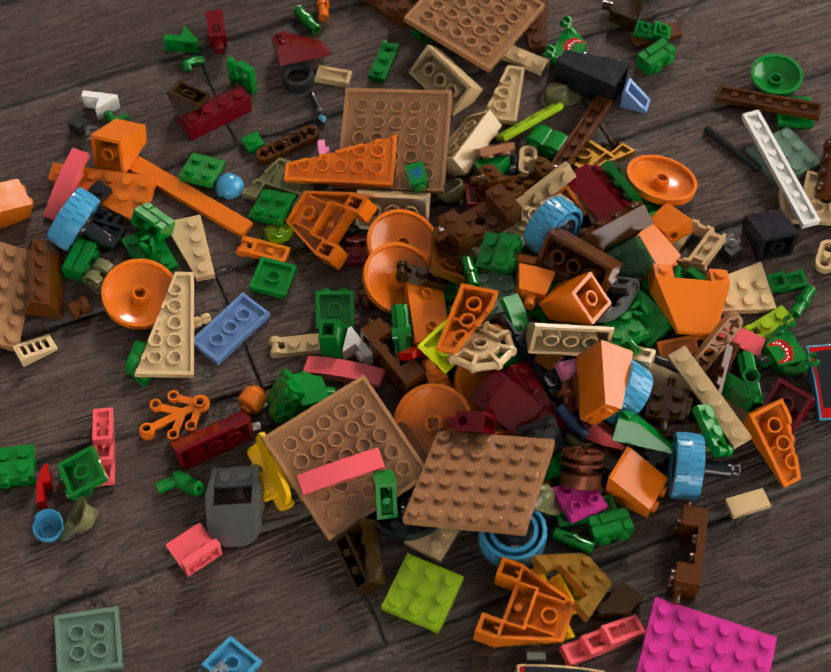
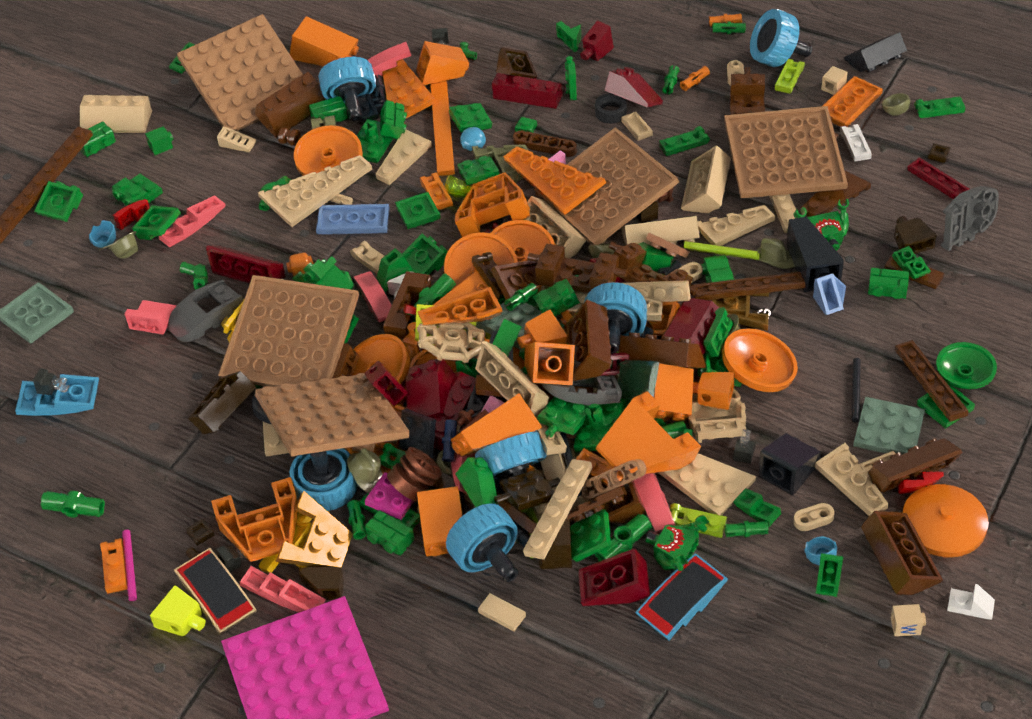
camera: 55 degrees right, 10 degrees down
(100, 101) = (469, 35): white slope -> none
(100, 191) = (390, 81): black plate -> none
(175, 414) = (272, 243): orange plant -> none
(195, 60) = (559, 51): green arm -> none
(320, 114) = (599, 135): black piece -> none
(340, 471) = (269, 335): coral slope -> none
(385, 494) = (278, 370): green slope -> none
(417, 176) = (584, 217): green brick -> none
(422, 593) = (229, 461): lime plate -> none
(686, 577) = (403, 603): reddish brown brick -> none
(712, 431) = (522, 526): green plate -> none
(774, 440) = (578, 583): orange wedge -> none
(780, 169) = (863, 427): white plate -> none

